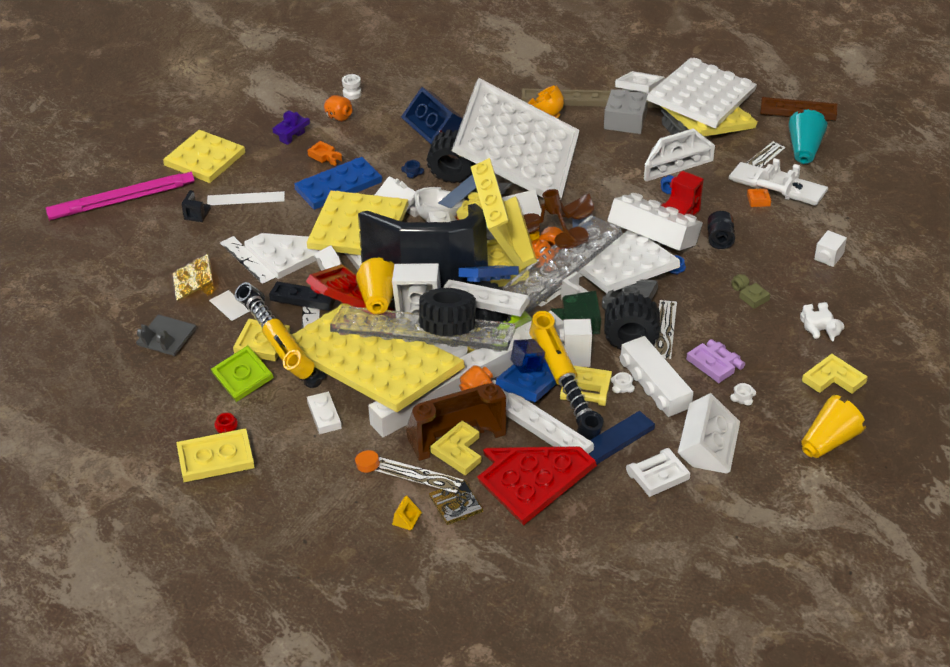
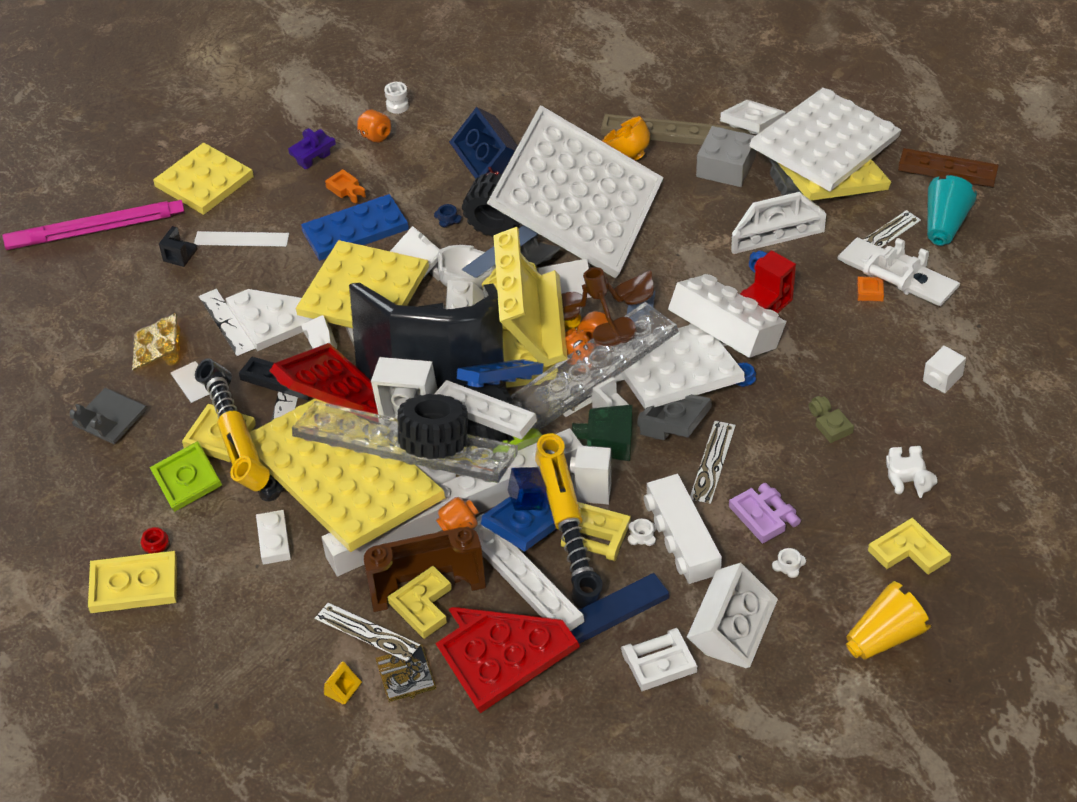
camera: 10 degrees right, 5 degrees up
(367, 461) = (310, 608): orange tile -> none
(375, 284) = (354, 378): yellow cone -> none
(630, 319) = (666, 450): black tyre -> none
(721, 230) = (809, 332): black wheel -> none

